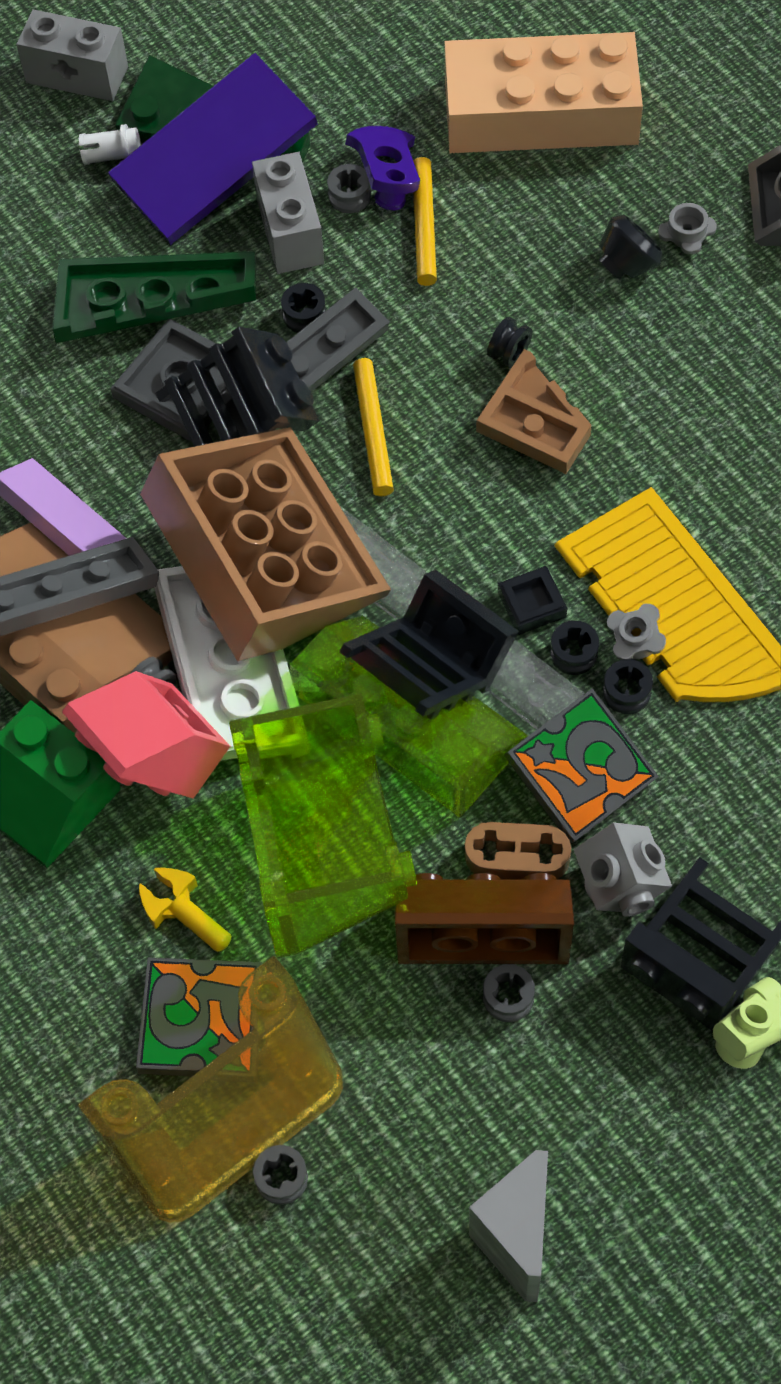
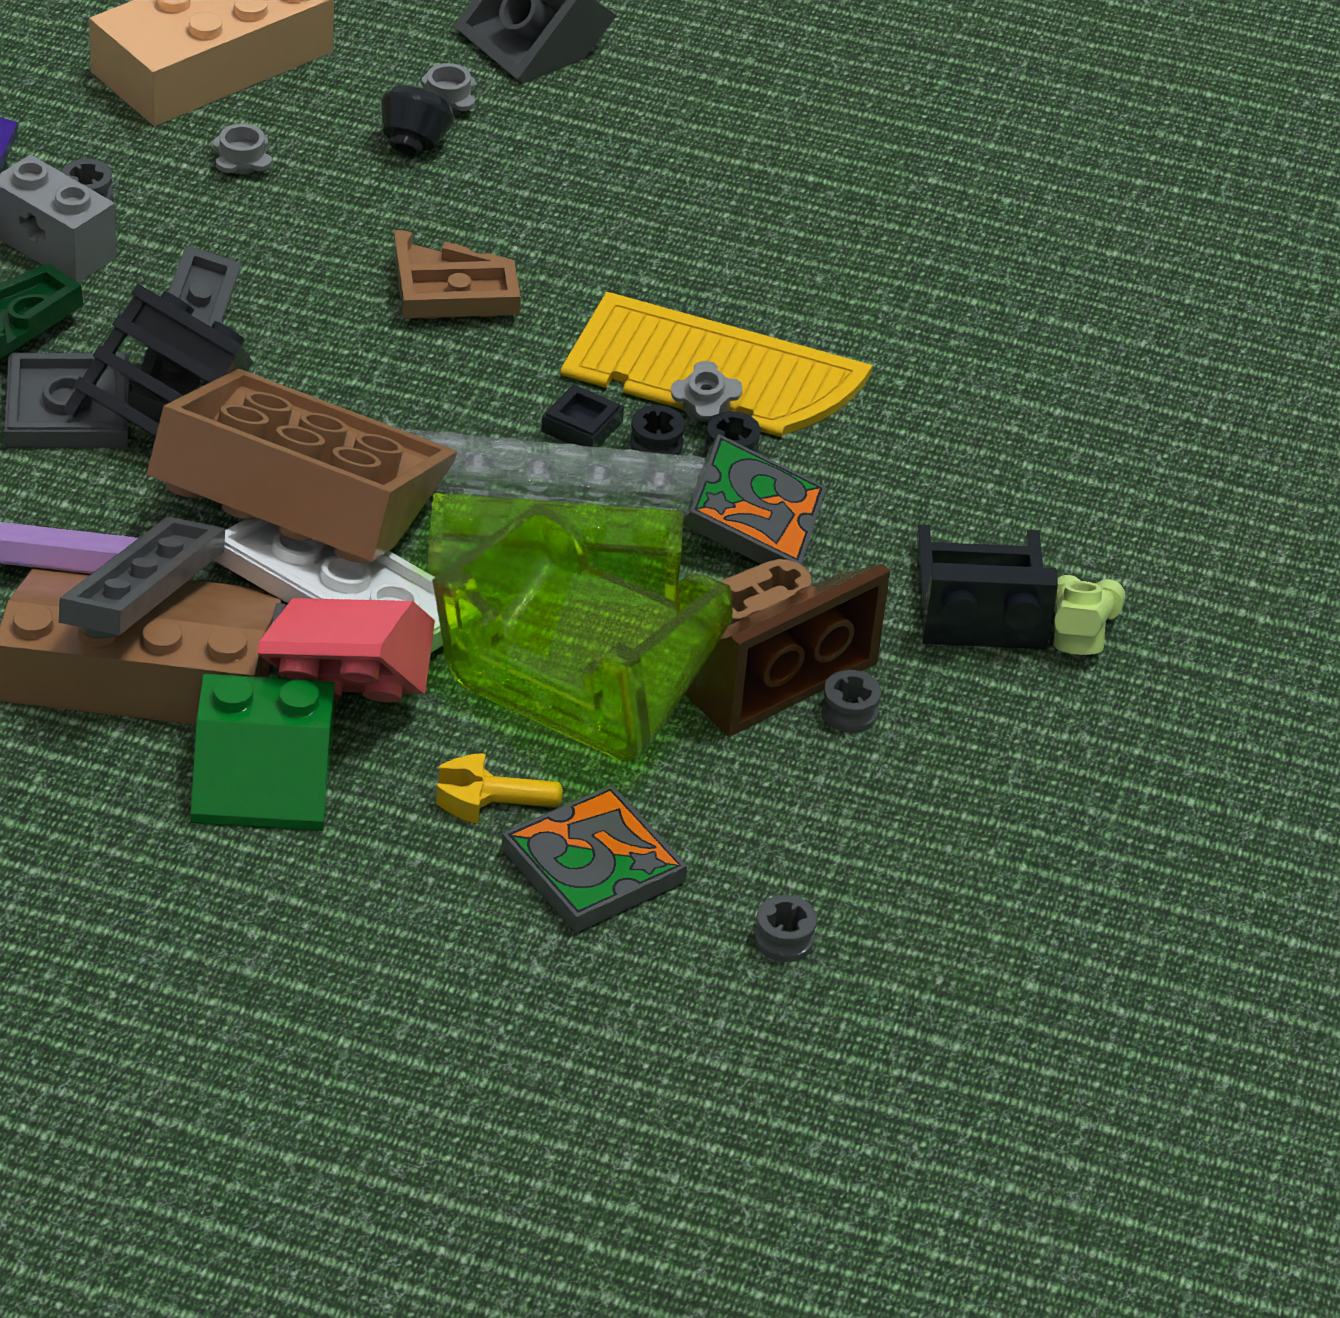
camera: 45 degrees left, 20 degrees down
(228, 1112) = (685, 921): clear yellow windscreen -> none
(298, 296) = (125, 281): black bush -> none
(373, 427) = (300, 356): yellow bar -> none
(389, 180) = (112, 146): dark purple piece -> none
(424, 224) = (188, 183): yellow bar -> none
(438, 649) = (553, 454): black plate -> none
(484, 201) = (242, 149): none -> light grey plate
(509, 341) = (372, 234): black bush -> none
(510, 1224) = (1045, 832): light grey slope -> none
(623, 869) = (862, 543): light grey brick -> none

